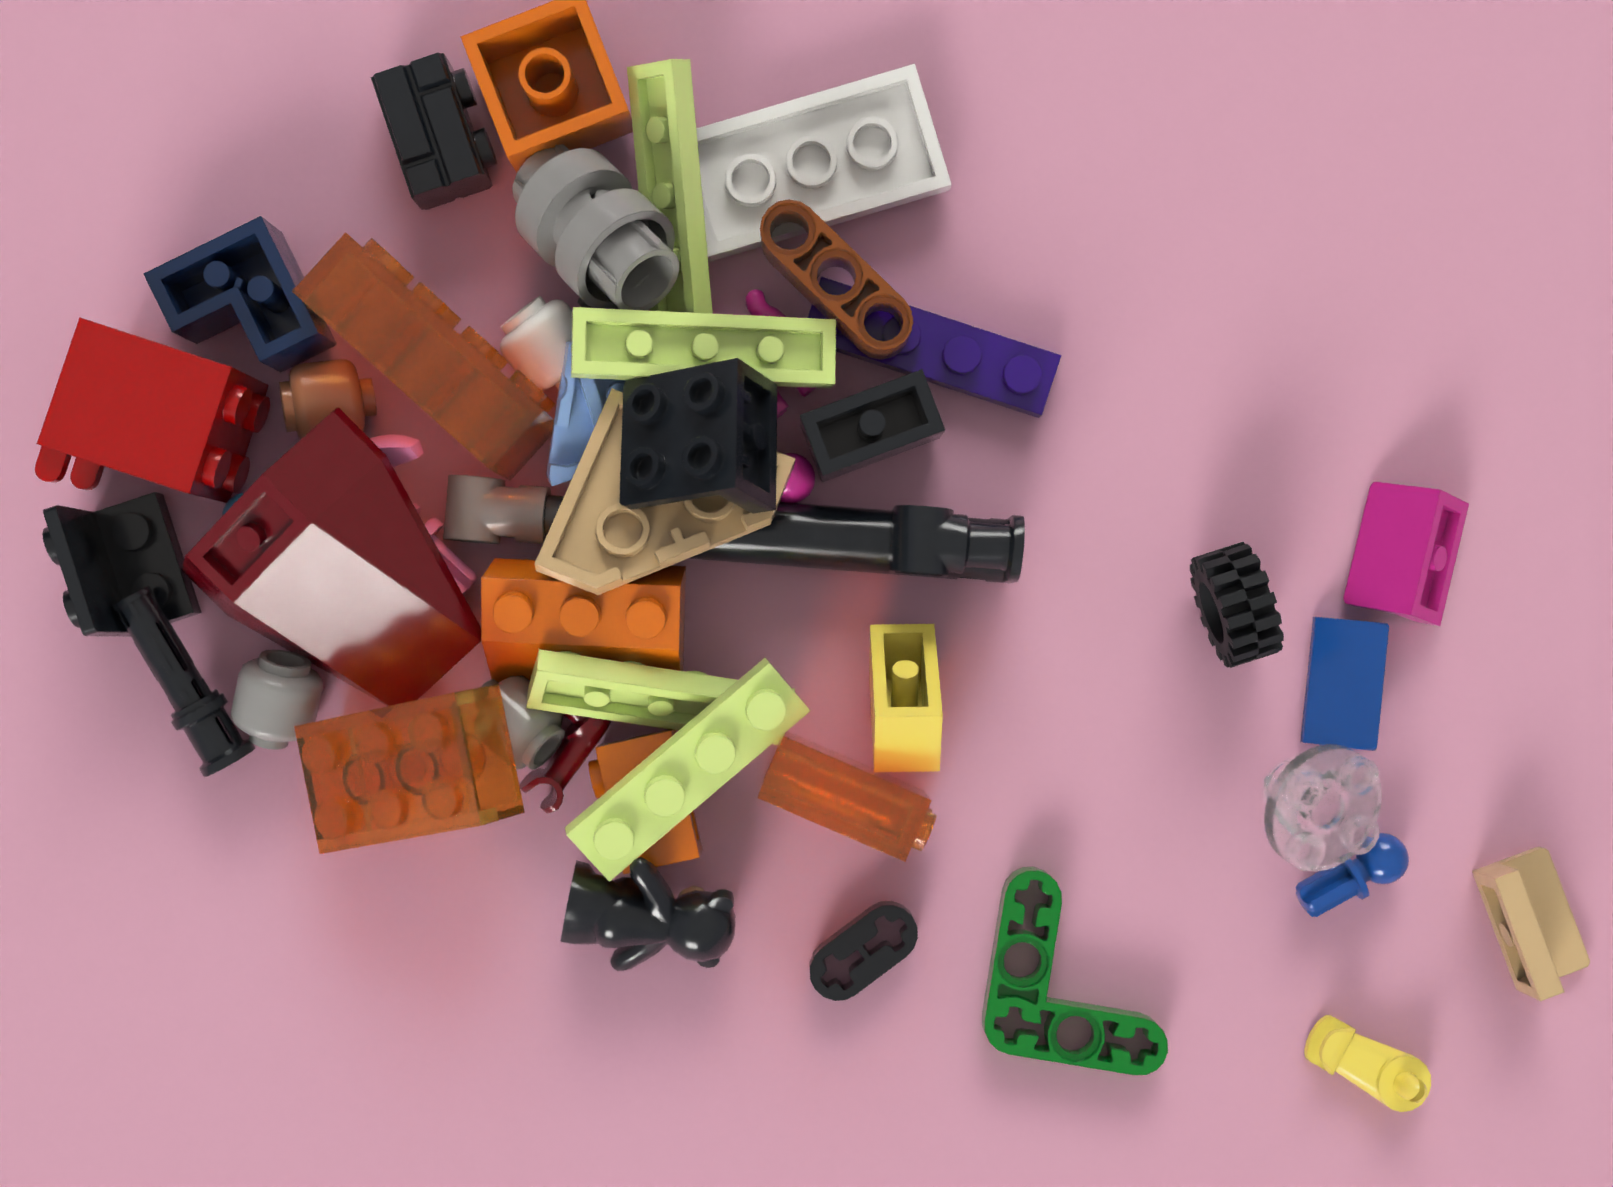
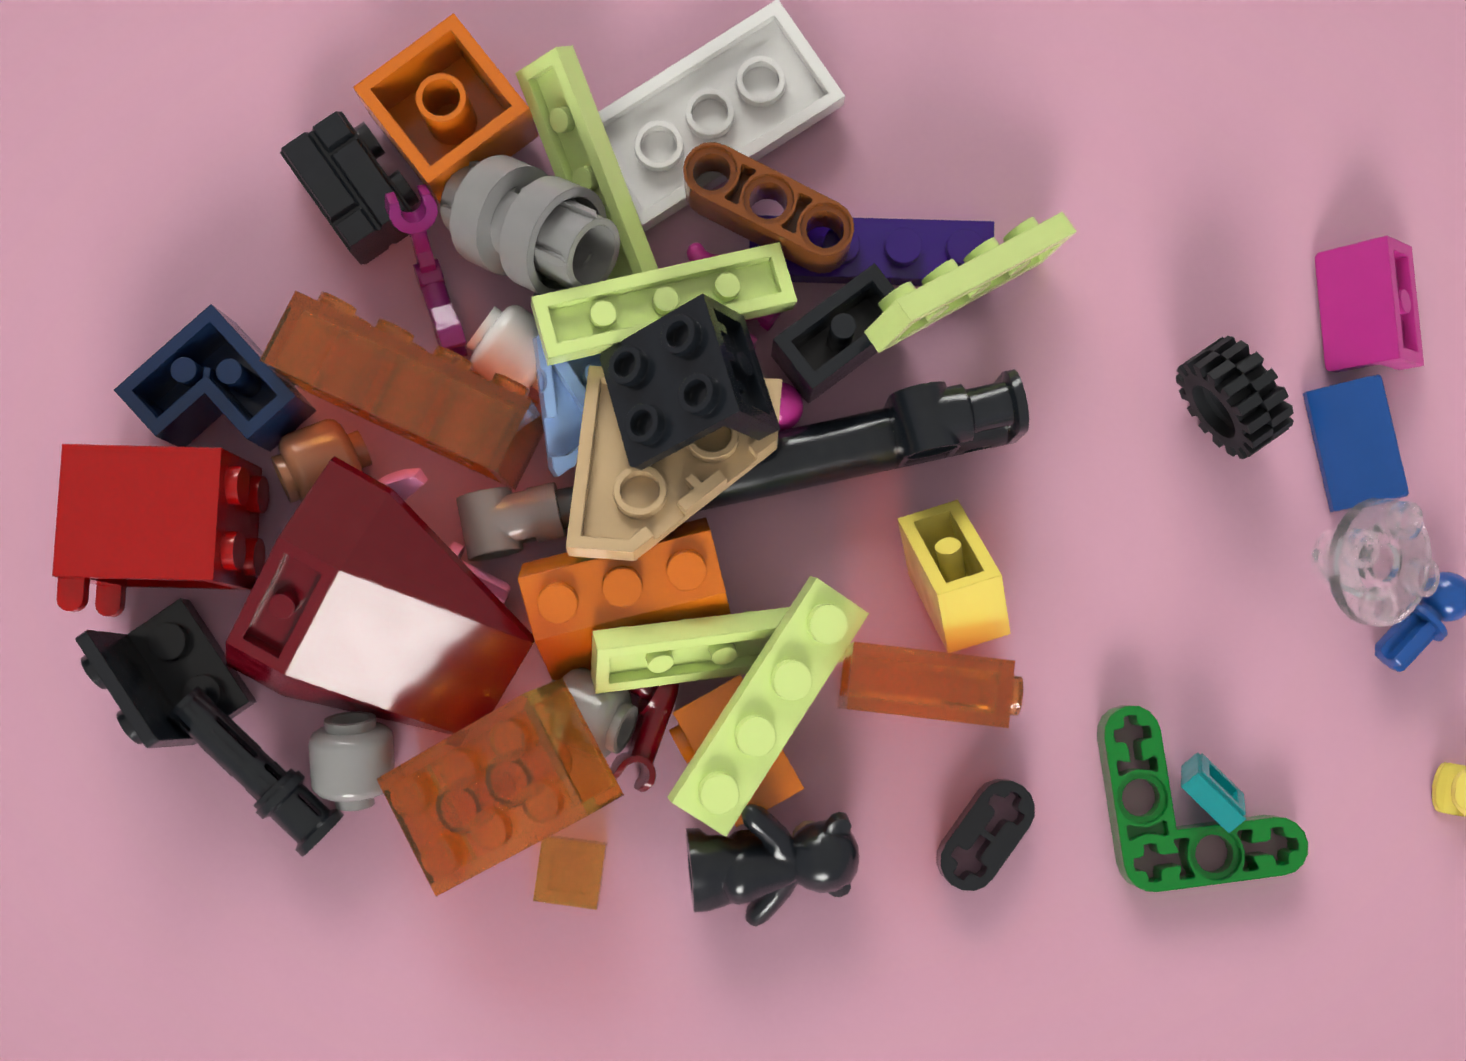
camera: 10 degrees left, 5 degrees down
(456, 867) = (570, 872): none -> clear yellow tile
(486, 240) = (428, 270): none -> magenta piece
(989, 416) = (955, 286): none -> yellowish green plate
(1092, 976) = (1213, 791): none -> teal tile

